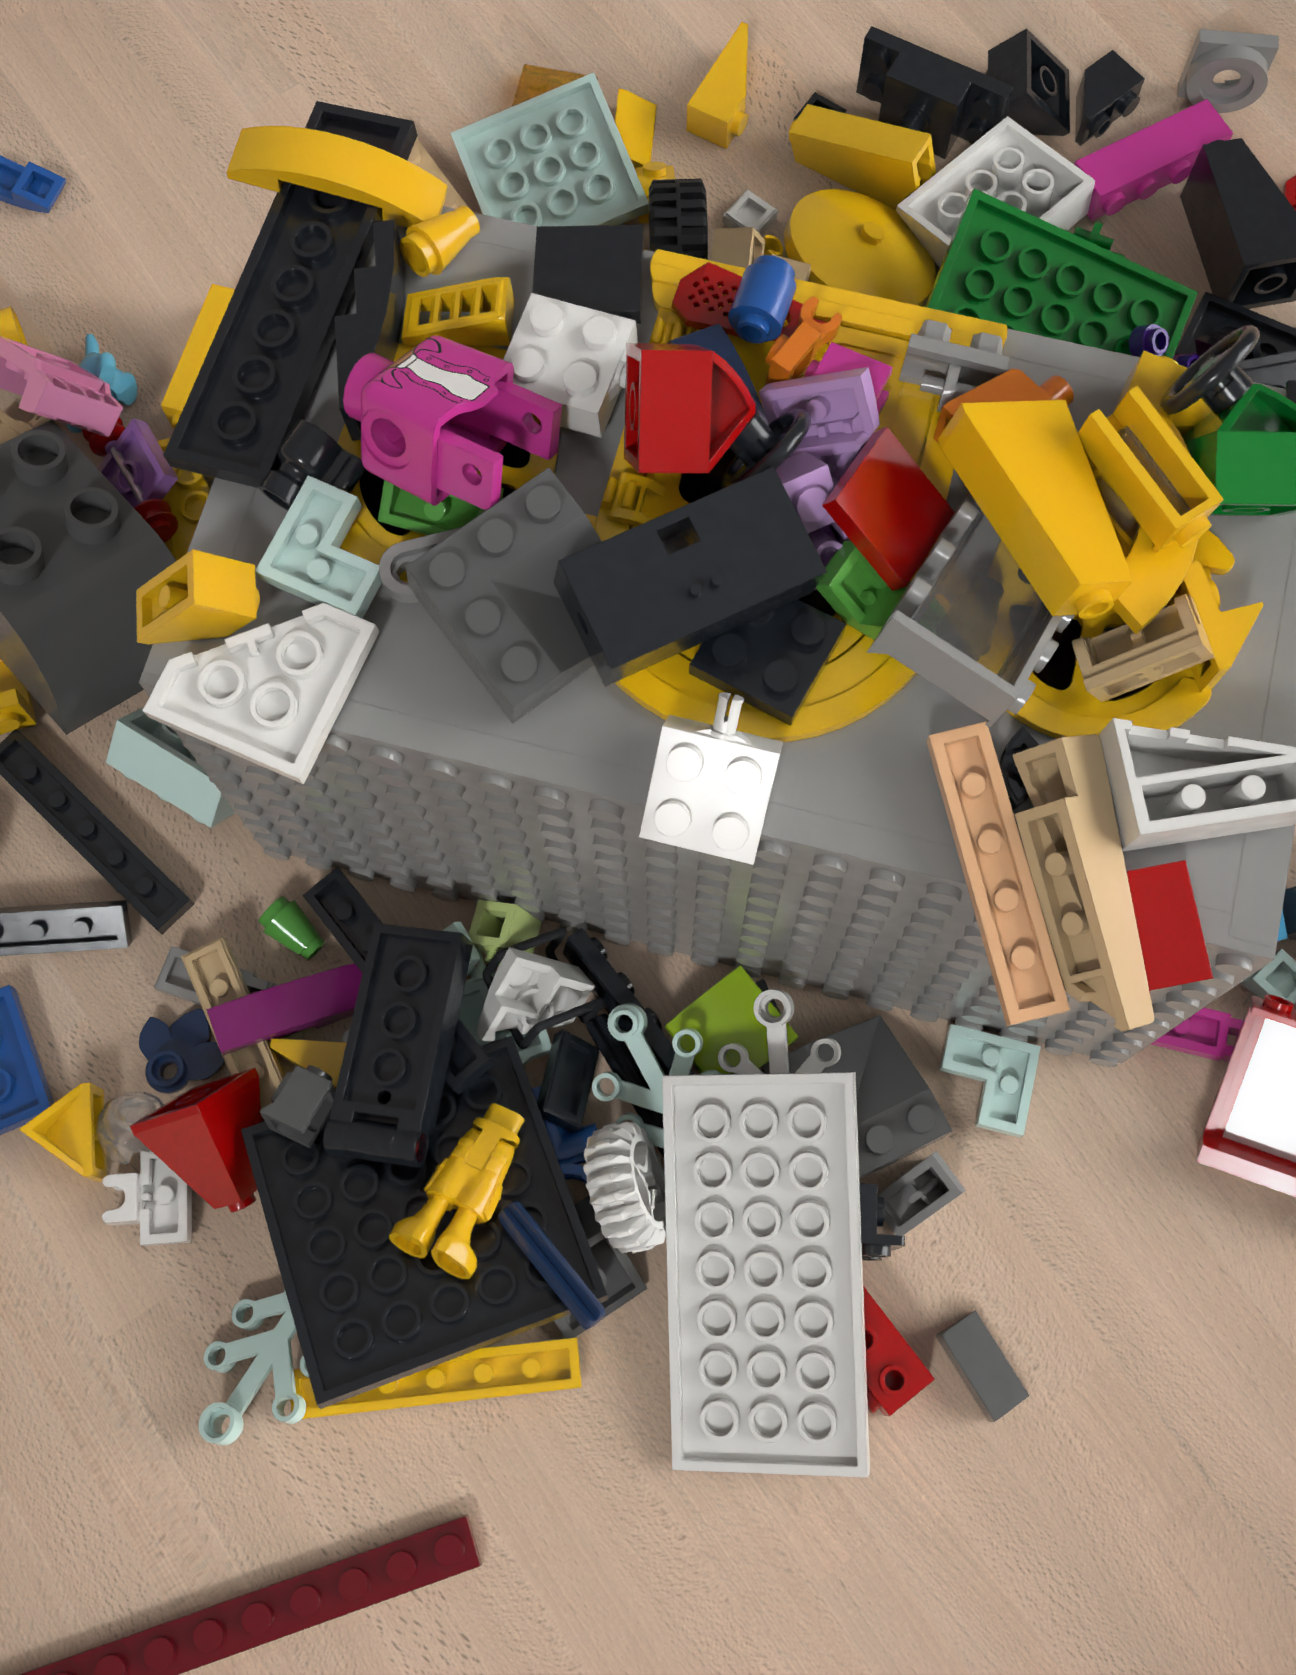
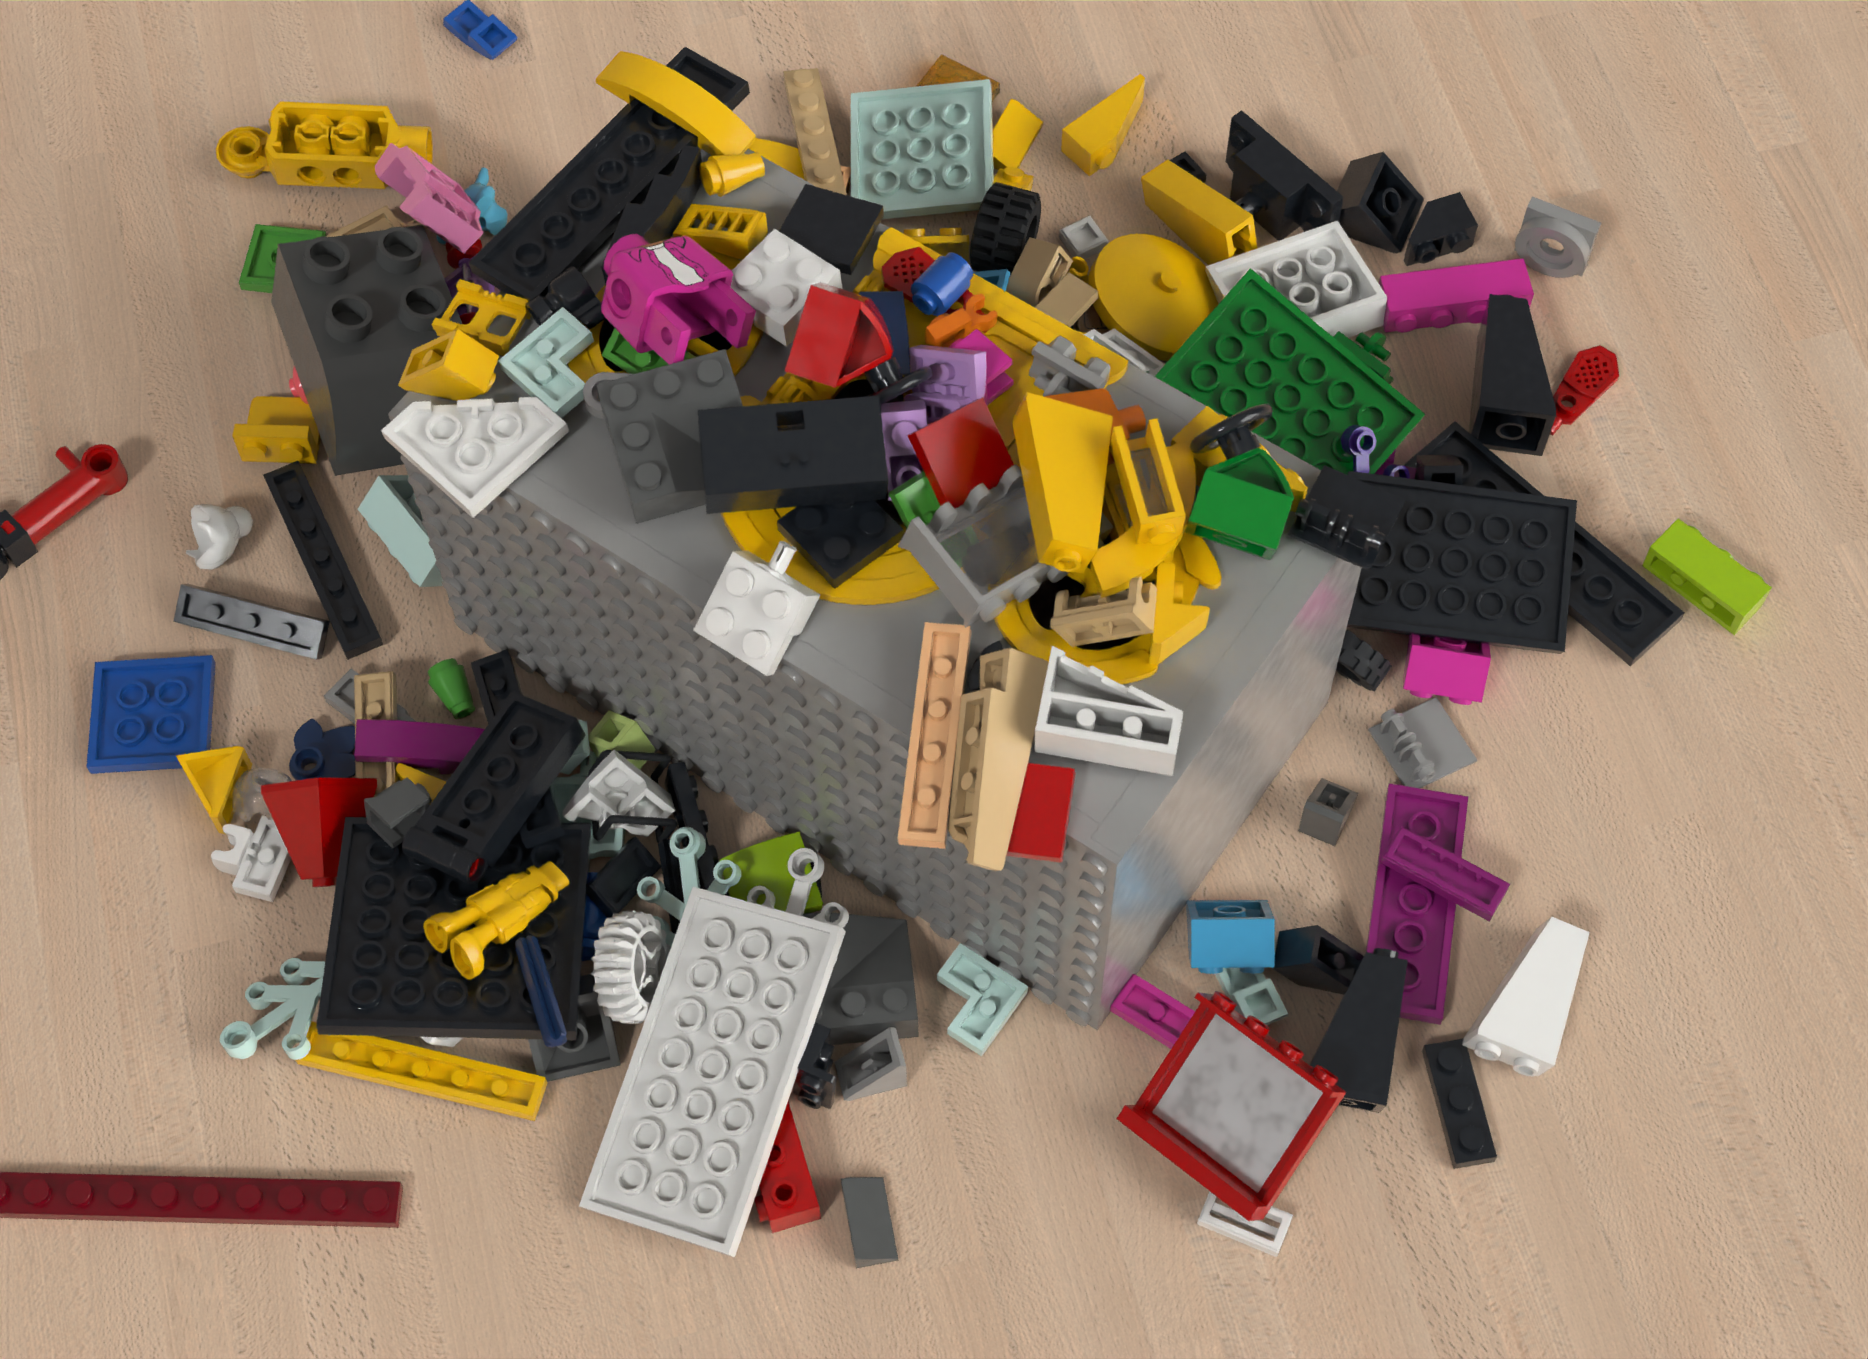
camera: 20 degrees right, 10 degrees down
(212, 505) = (489, 308): none -> yellow piece

